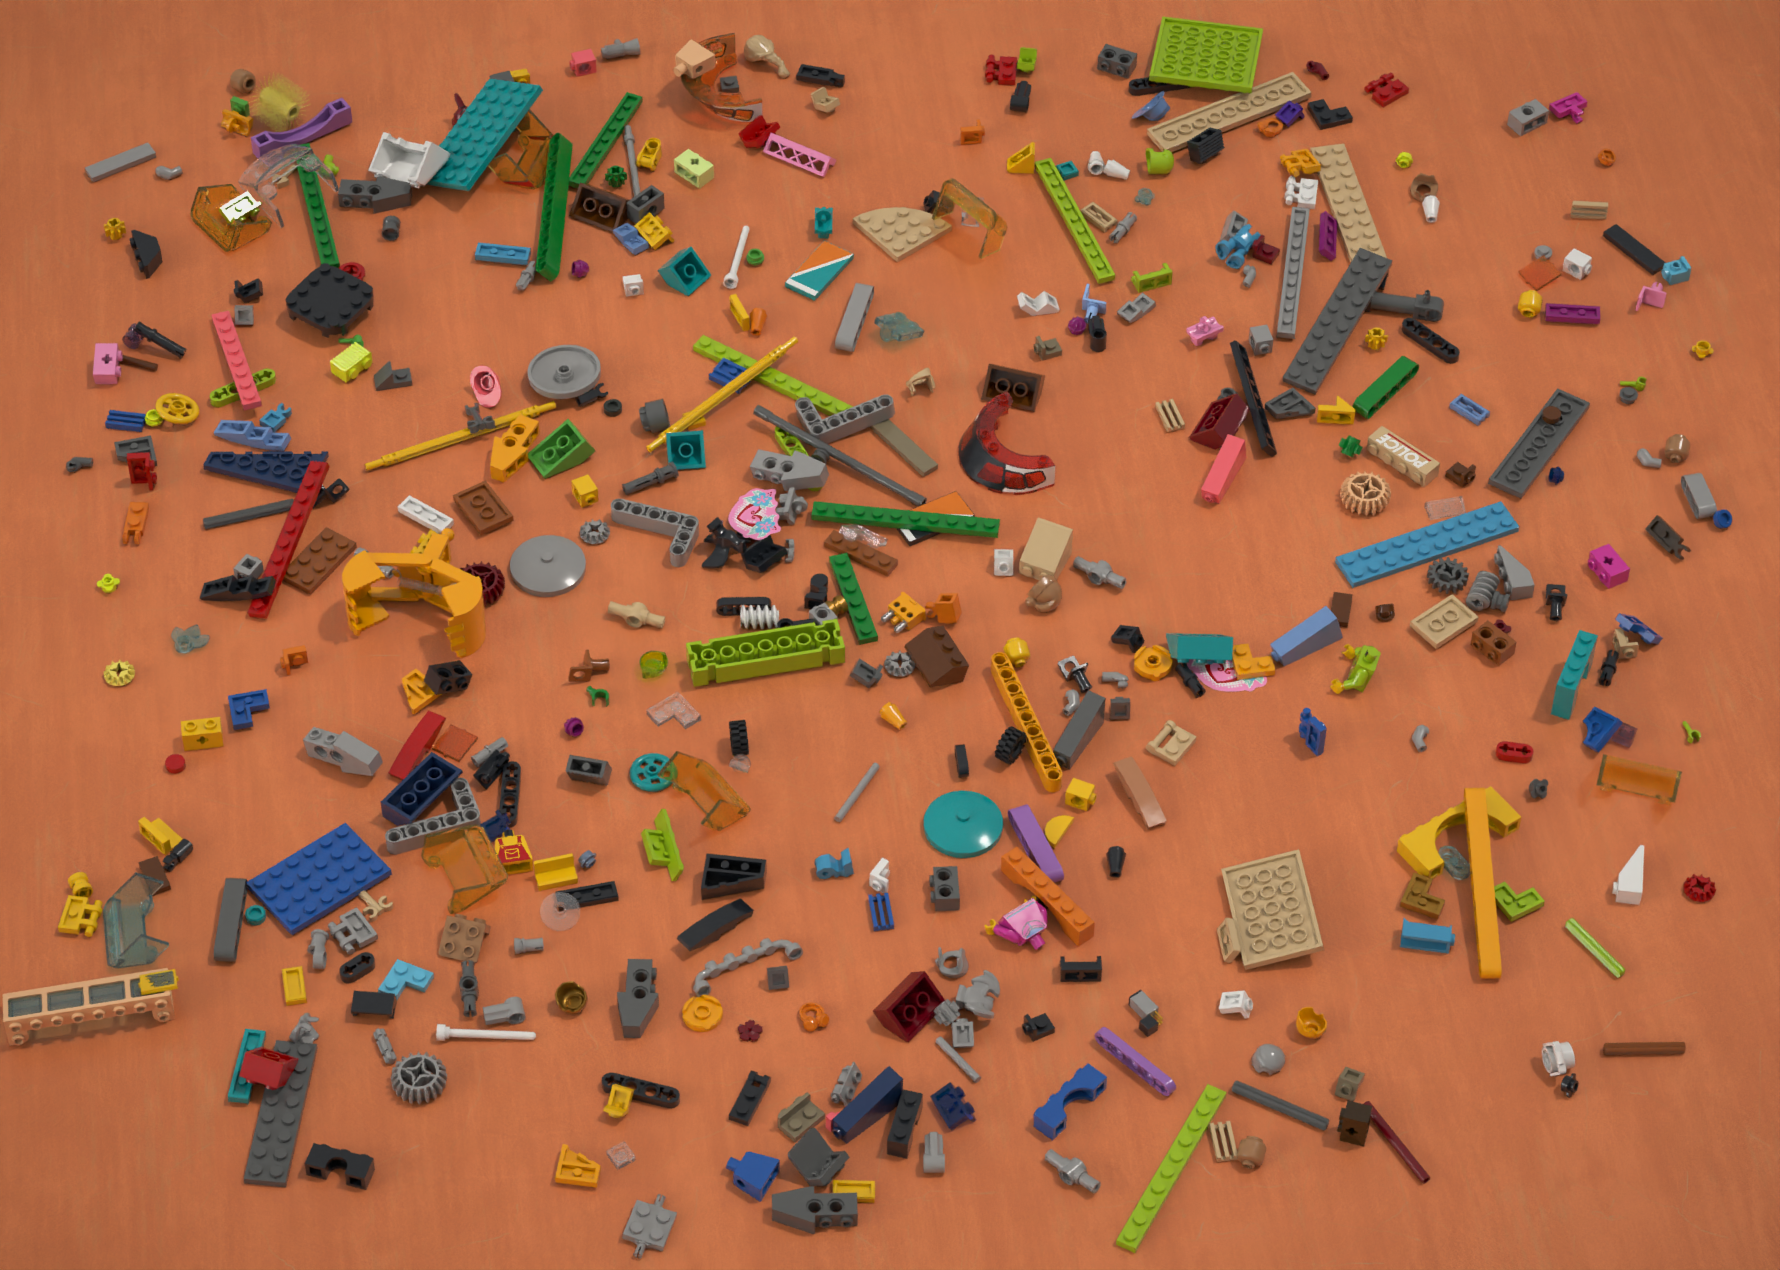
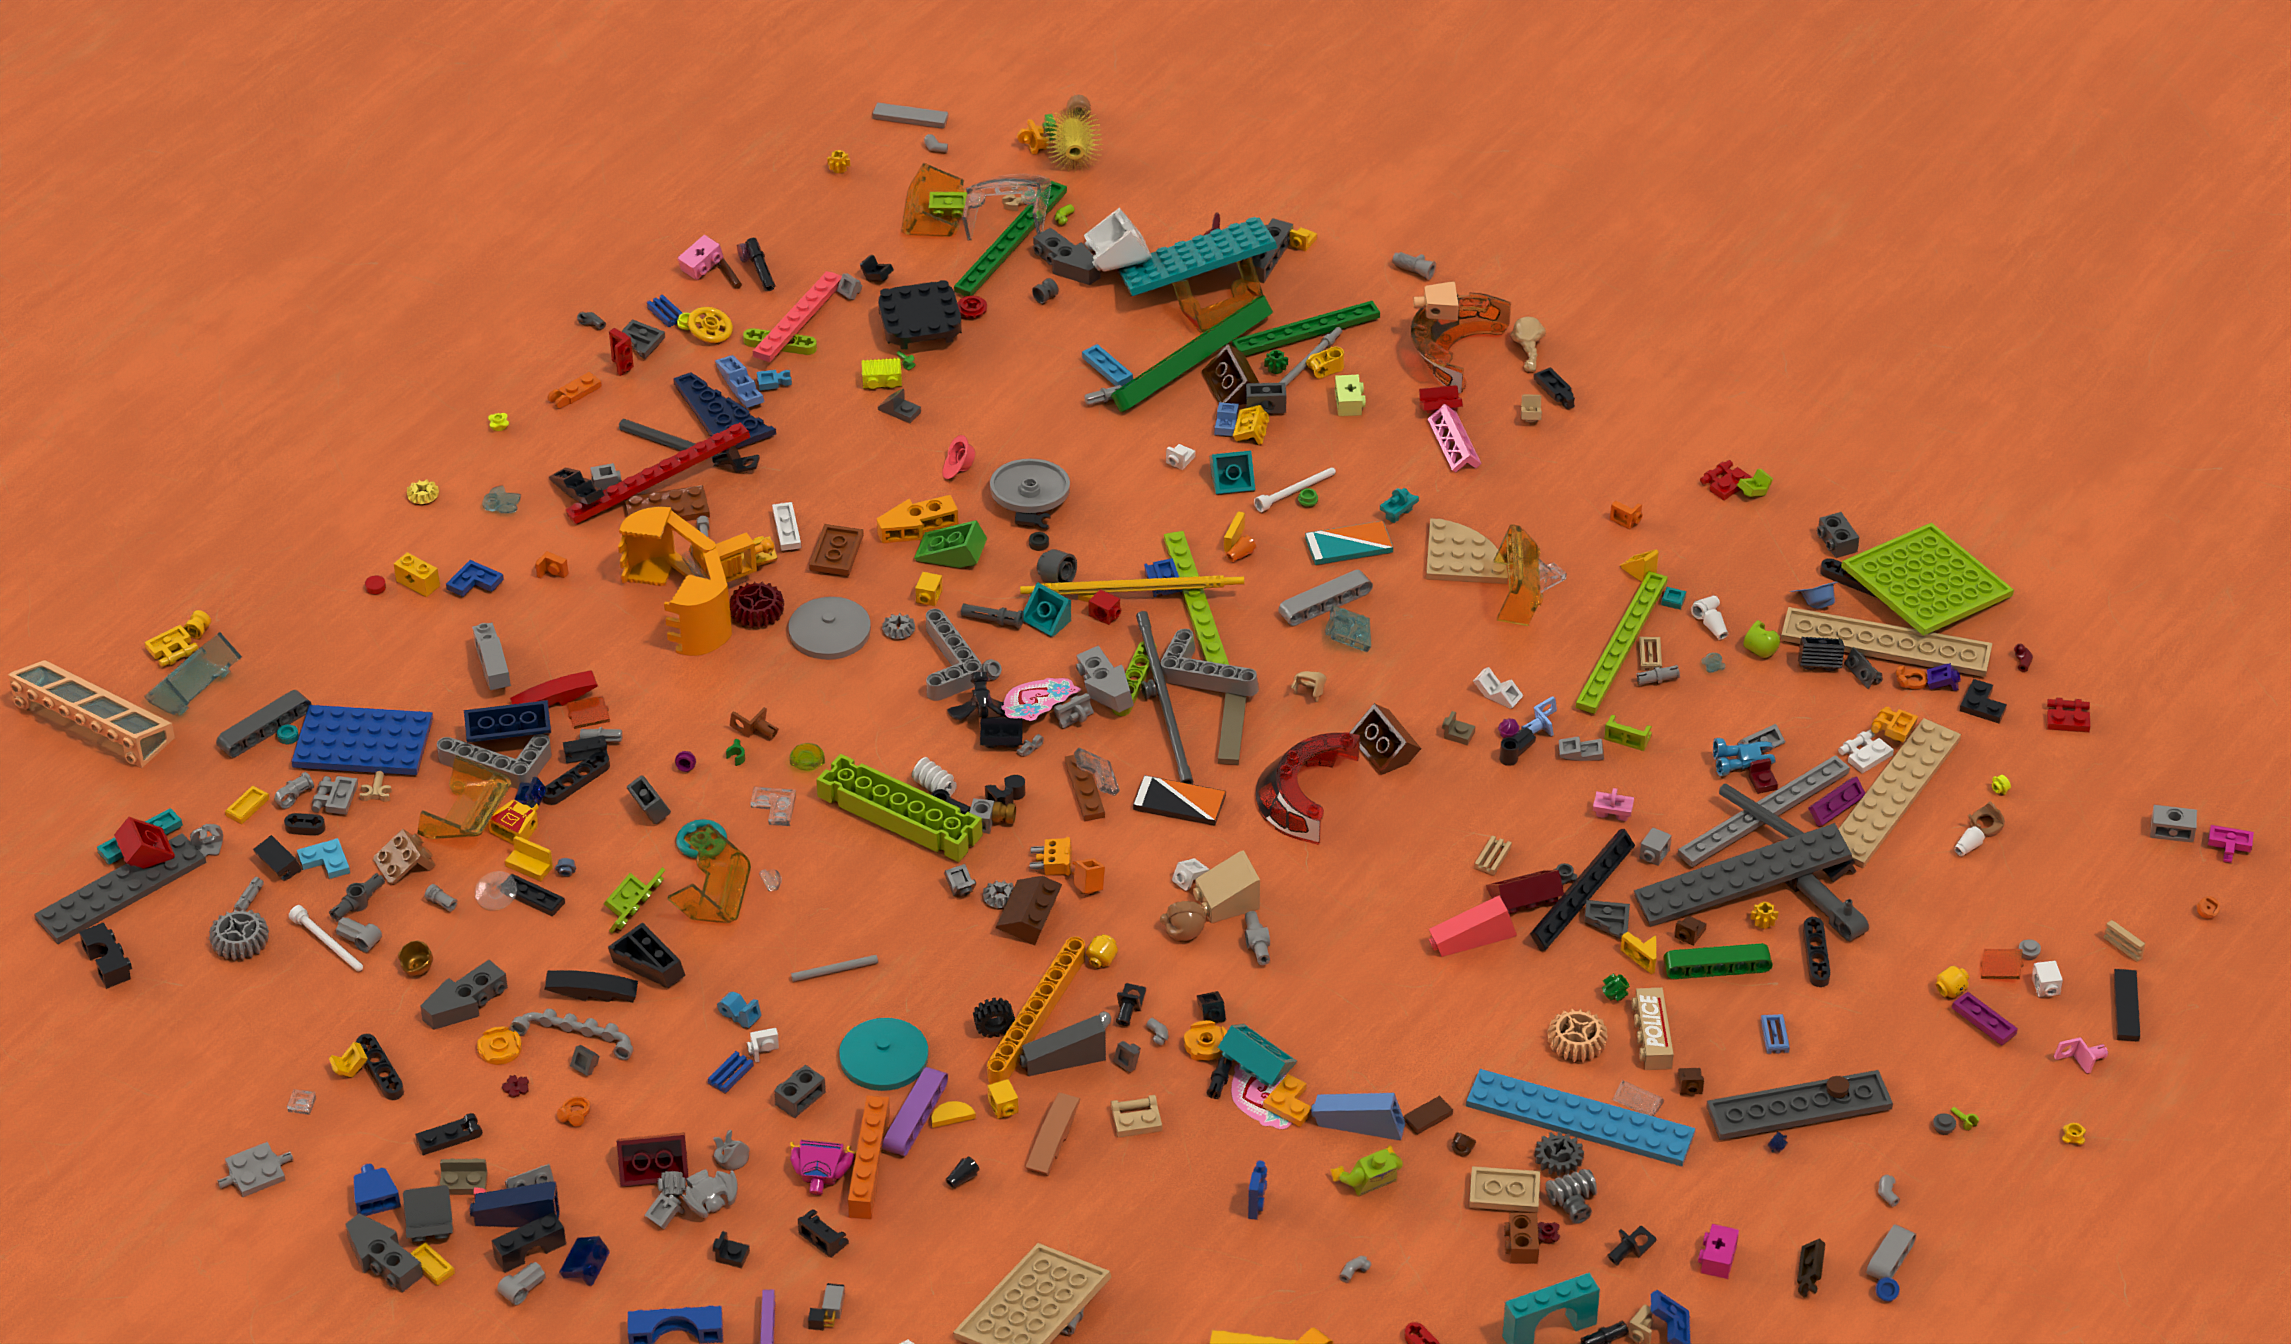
camera: 45 degrees right, 5 degrees down
(146, 251) = (838, 195): black slope -> none
(154, 869) = (257, 655): reddish brown tile -> none
(158, 982) = (144, 725): piece -> none
(159, 834) = (298, 629): yellow panel -> none
(178, 854) = (291, 650): black bar -> none
(332, 117) = (1110, 176): medium lavender arch -> none
(417, 691) = (610, 654): light orange wing -> none
(448, 677) = (637, 656): black brick -> none
(455, 437) = (890, 483): yellow axle -> none
(478, 423) = (917, 481): dark grey bar -> none
(576, 1169) = (258, 1086): light orange wing -> none
(579, 268) = (1152, 415): magenta plate -> none
(583, 62) = (1368, 256): coral brick -> none
(636, 614) = (844, 710): tan pin -> none
(701, 515) = (993, 668): none -> light grey plate
(720, 421) = (1104, 607): none -> red brick
(729, 84) = (1470, 348): dark grey plate -> none
(729, 602) = (920, 750): black beam -> none
(739, 737) = (791, 856): black tyre -> none
(853, 595) = (1031, 818): green plate -> none
(892, 715) = (938, 929): light orange cone -> none
(905, 519) = (1152, 784): green plate -> none
(958, 1059) = (638, 1229): light grey bar -> none
(961, 760) = (944, 1003): black beam -> none
(1020, 99) = (1706, 514): black piece -> none
(1228, 940) = (975, 1297): tan plate -> none
(1238, 140) = (1862, 668): none -> dark grey hinge
(1250, 272) = (1714, 790): light grey arm -> none
(1300, 273) = (1759, 811): none -> dark grey axle
(1343, 379) = (1689, 930): none -> reddish brown bracket
(1516, 576) = (1616, 1203): light grey slope -> none
(1676, 271) = (2139, 1049): medium azure brick -> none
(1677, 448) = (1925, 1199): medium nougat head -> none

